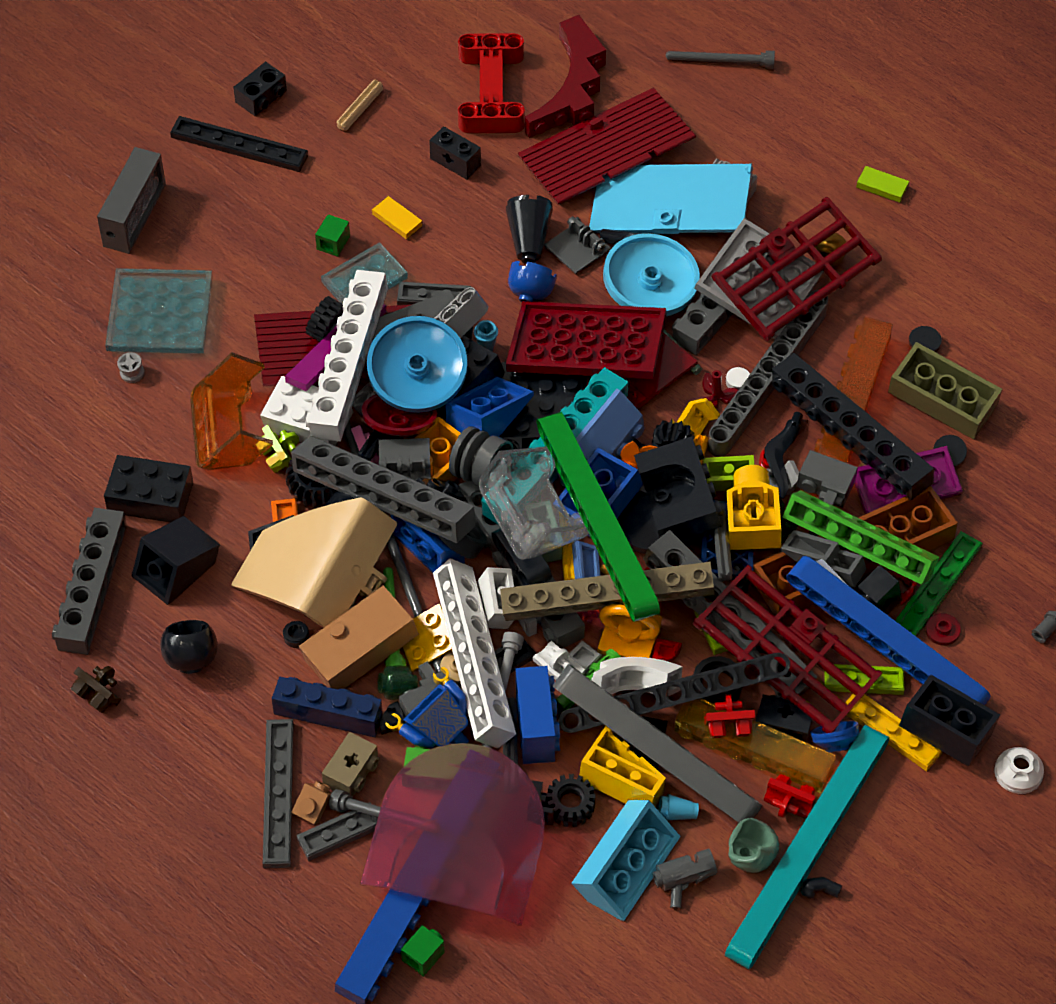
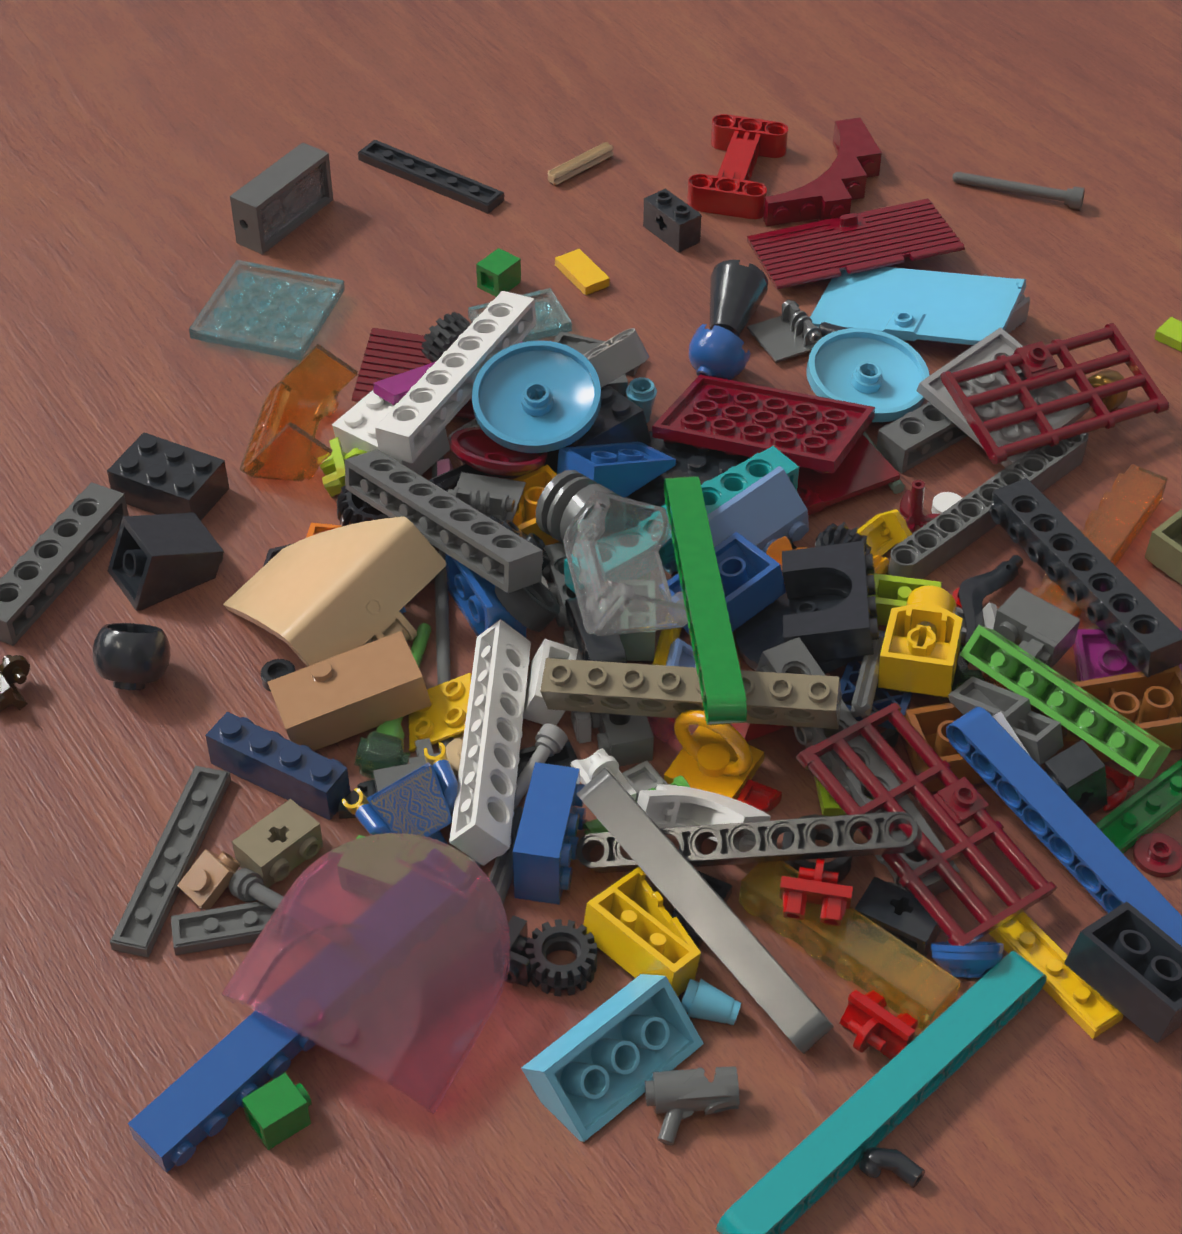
camera: 15 degrees right, 10 degrees down
(131, 367) = (209, 357): light grey wheel -> none
(260, 88) = (473, 129): black brick -> none
(753, 845) = (803, 1078): sand green piece -> none
(888, 683) = (1064, 905): lime tile -> none

